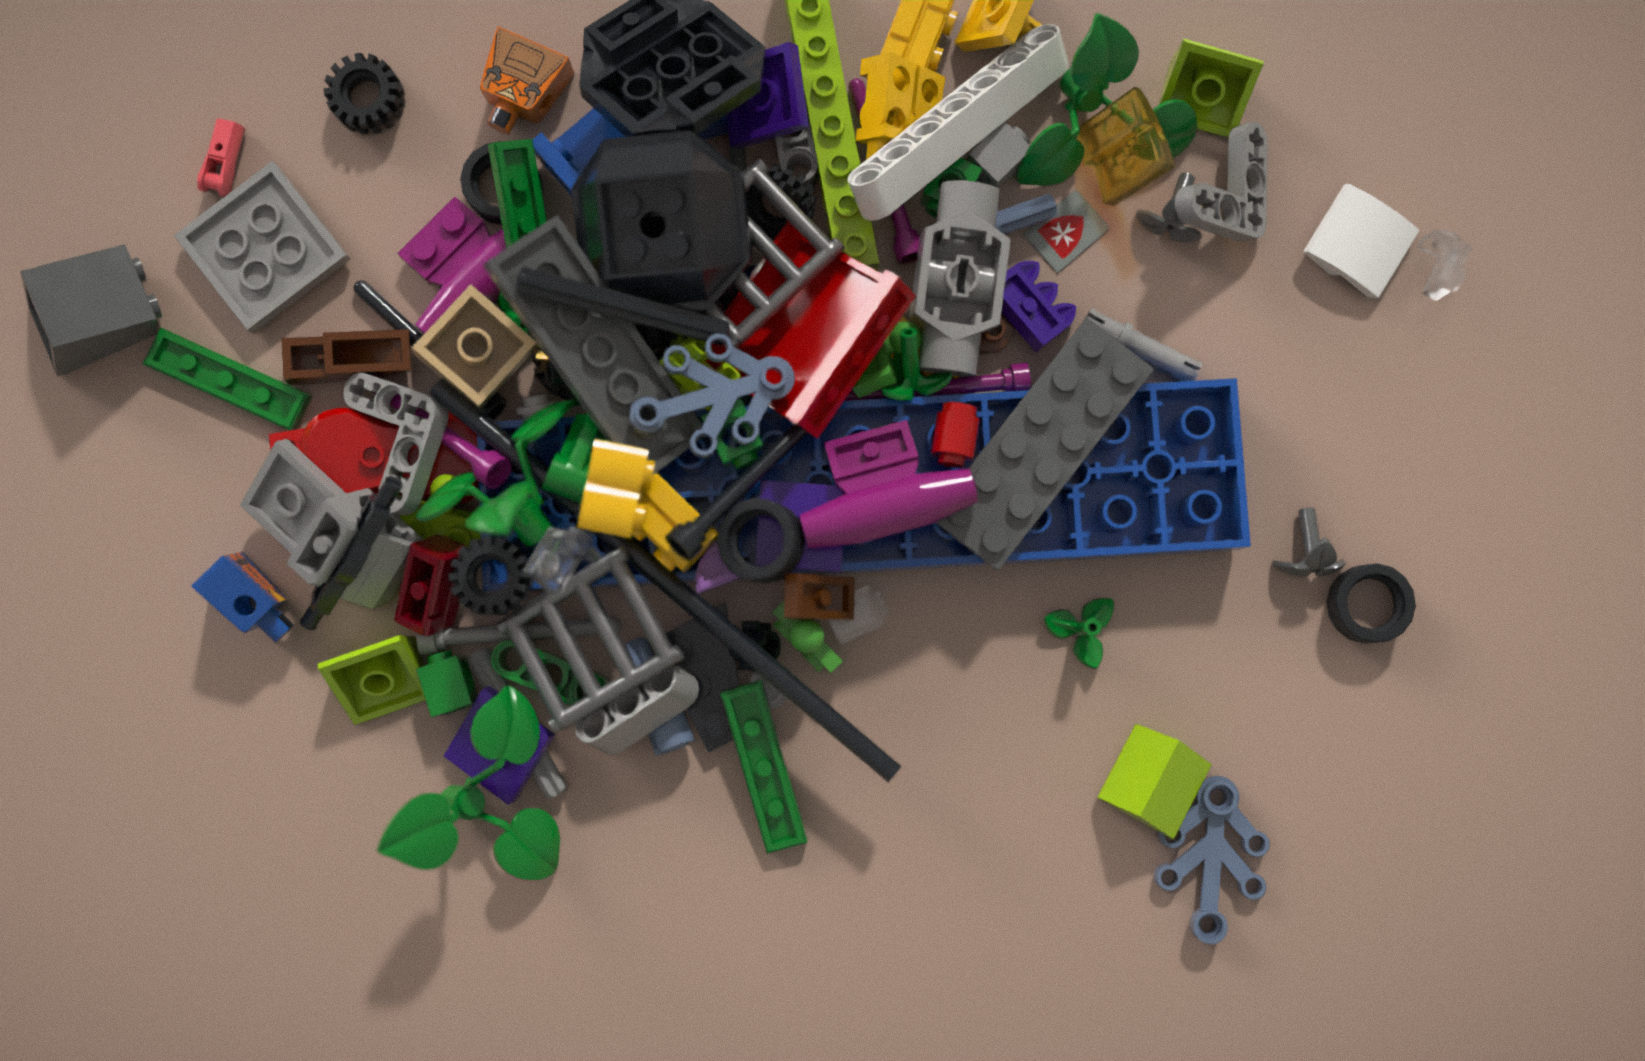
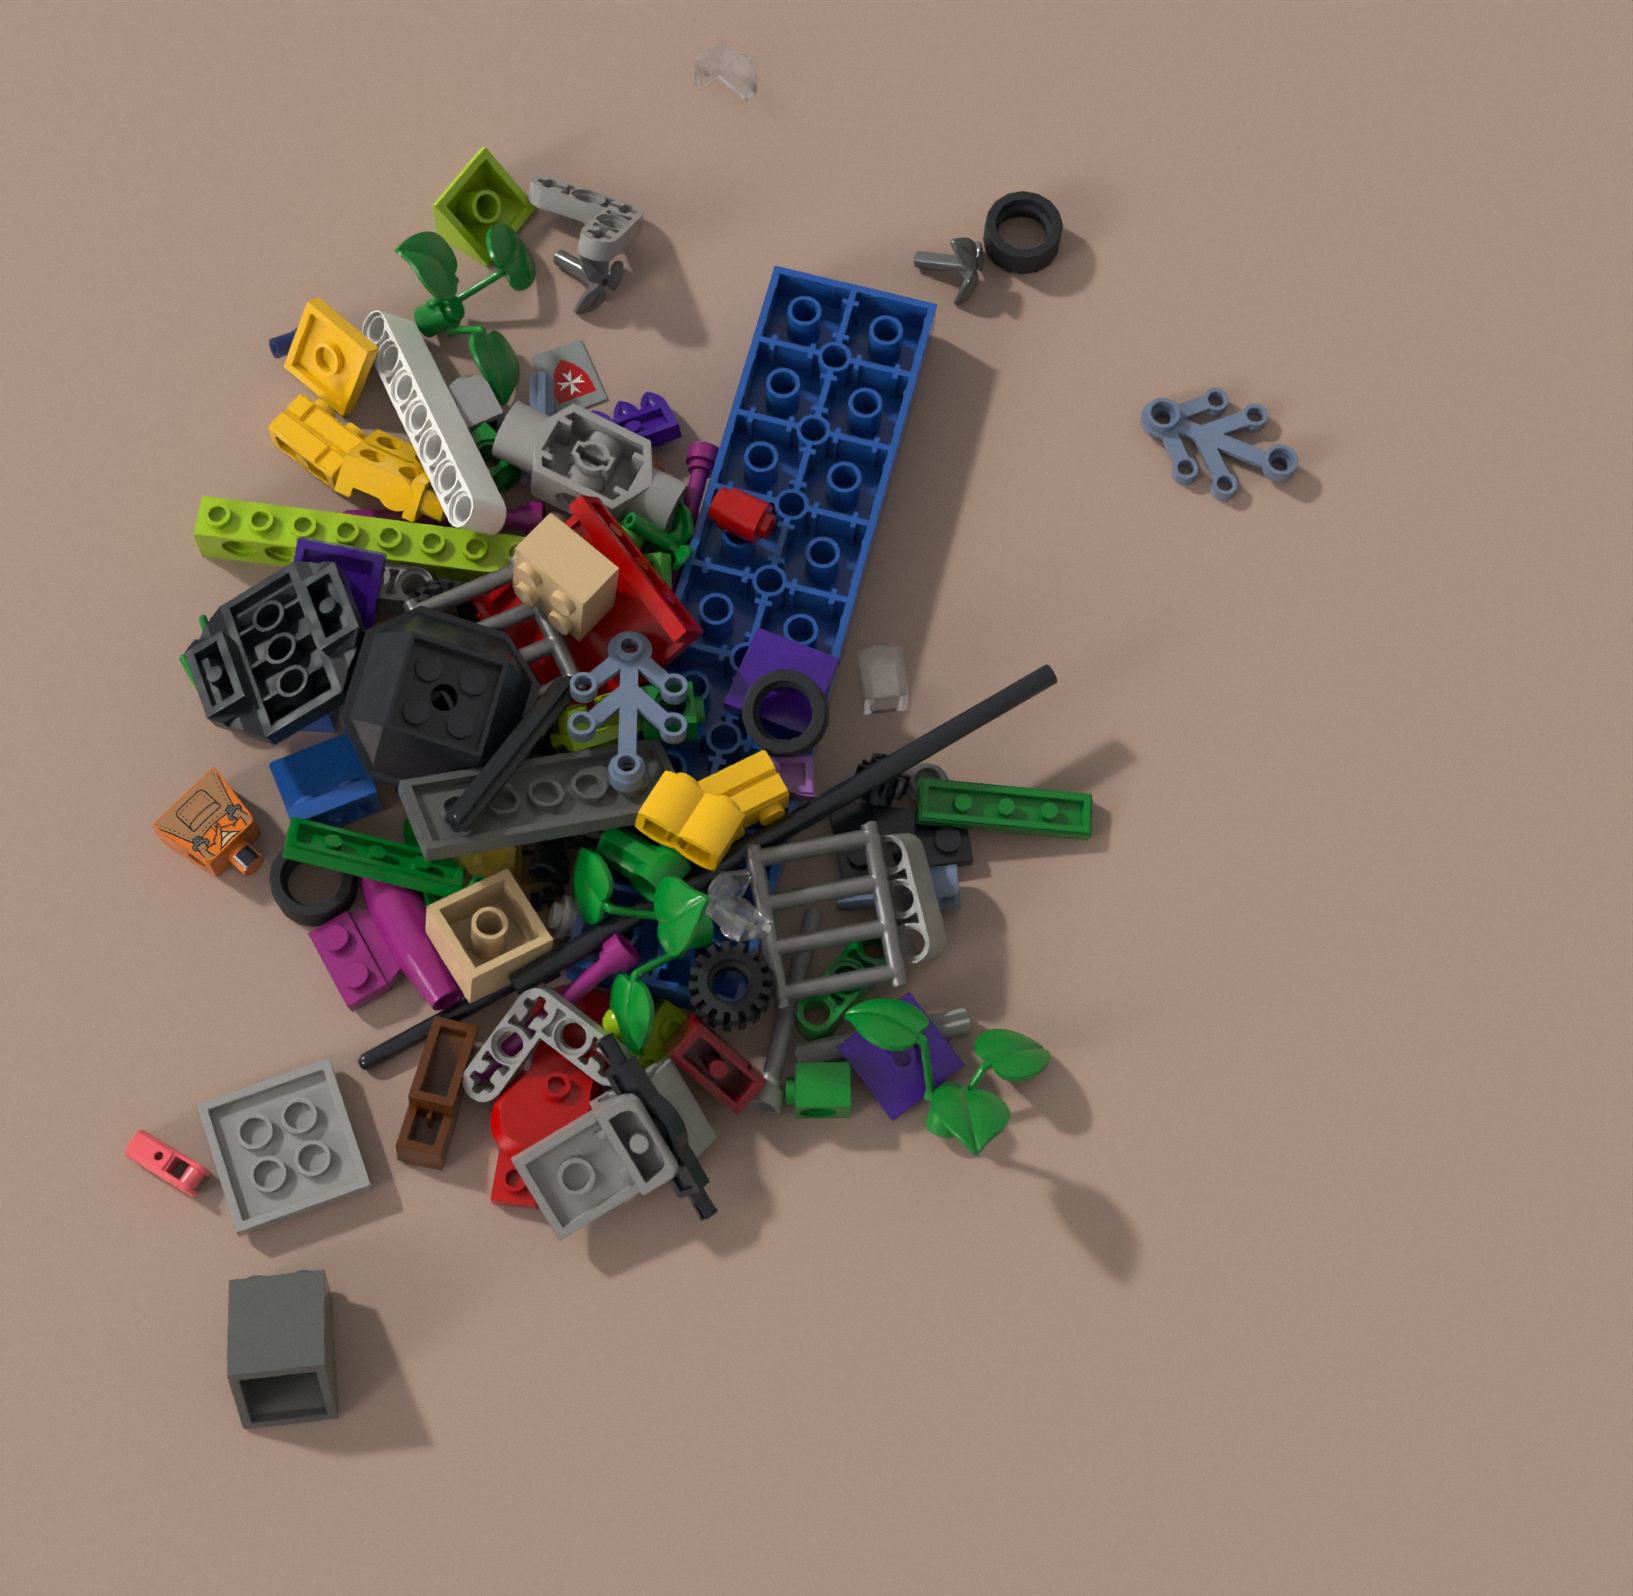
camera: 75 degrees left, 15 degrees down
(227, 379) = (412, 1231): green tile -> none
(231, 585) = (643, 1273): blue torso -> none
(348, 78) = (146, 969): black tyre -> none
(376, 678) = (792, 1159): lime slope -> none
(688, 537) = (761, 769): black piece -> none
(808, 639) = (891, 724): bright green plate -> none
(814, 291) = (564, 577): none -> tan brick
(818, 597) = (855, 694): reddish brown slope -> none
(883, 490) = (773, 590): magenta plate -> none
(1045, 441) = (778, 448): dark grey plate -> none
(1094, 616) = (959, 471): green plant -> none
(1125, 147) = (514, 292): clear yellow slope -> none
(1148, 349) = (697, 357): light grey pin -> none
(1155, 780) = (1127, 465): lime slope -> none
(1361, 240) = (678, 131): white slope -> none

